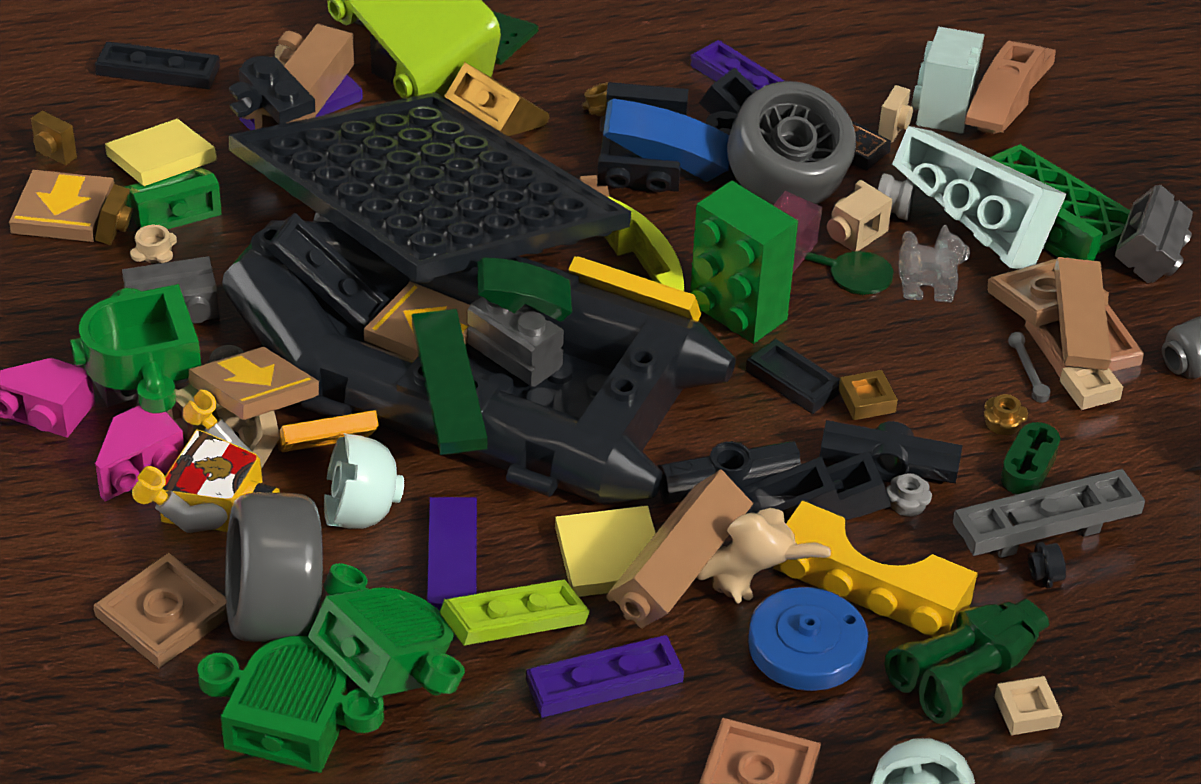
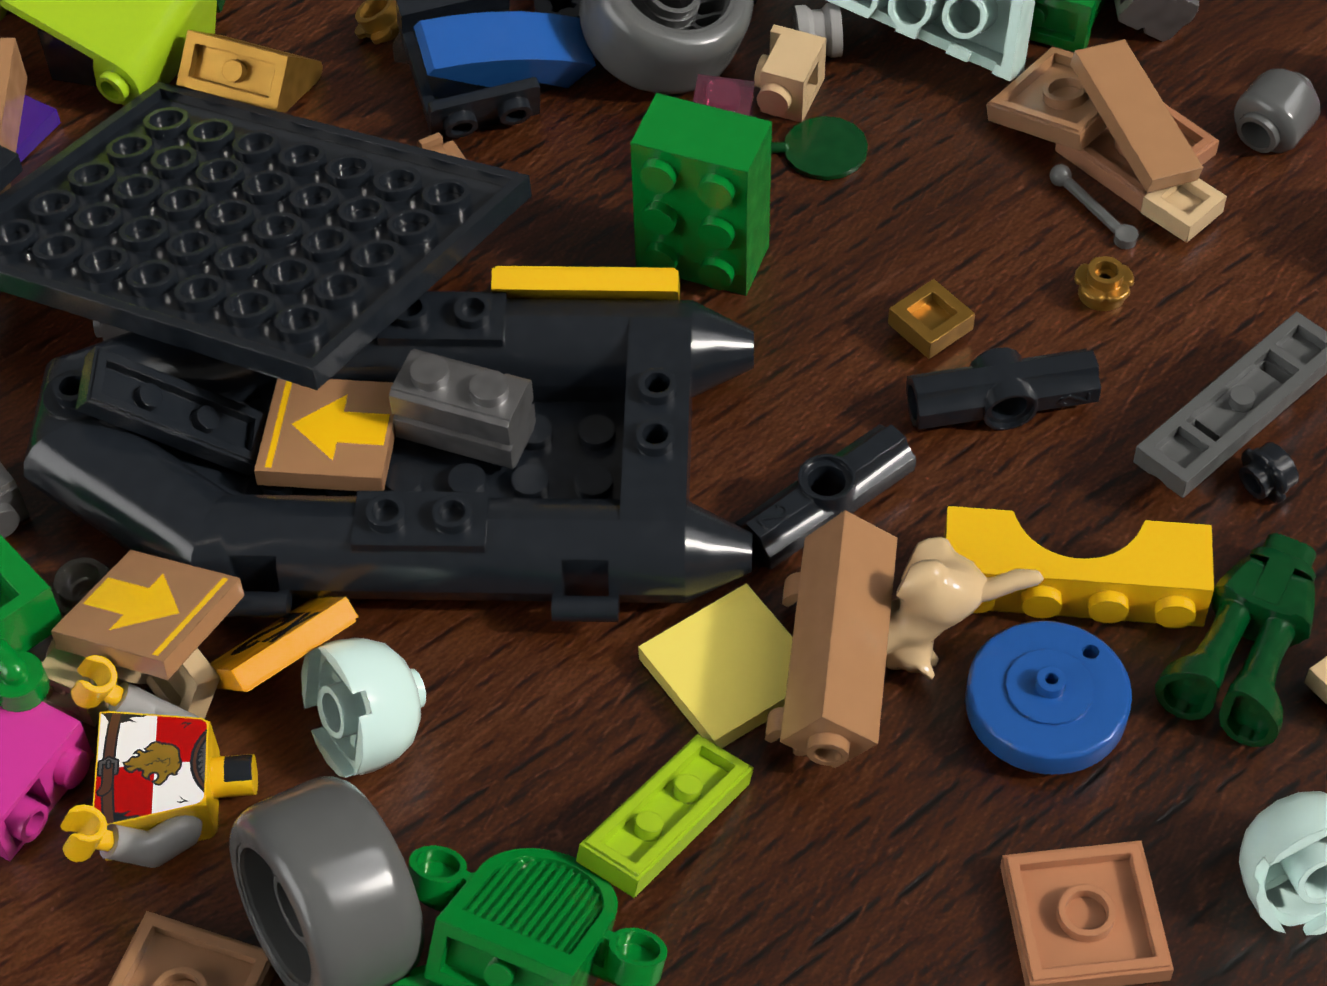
camera: 20 degrees left, 10 degrees up
(449, 382) = (424, 516): dark green tile -> none
(452, 548) = (531, 756): dark purple tile -> none
(520, 283) = (453, 339): dark green slope -> none
(604, 675) = (817, 854): dark purple tile -> none
(650, 248) = (570, 220): neon yellow slope -> none
(793, 376) = (823, 324): black tile -> none
(845, 488) = (960, 472): black slope -> none
(908, 494) = (1050, 450): light grey plate -> none
(931, 266) = (910, 111): clear animal -> none
(1023, 455) = (1154, 332): dark green beam -> none

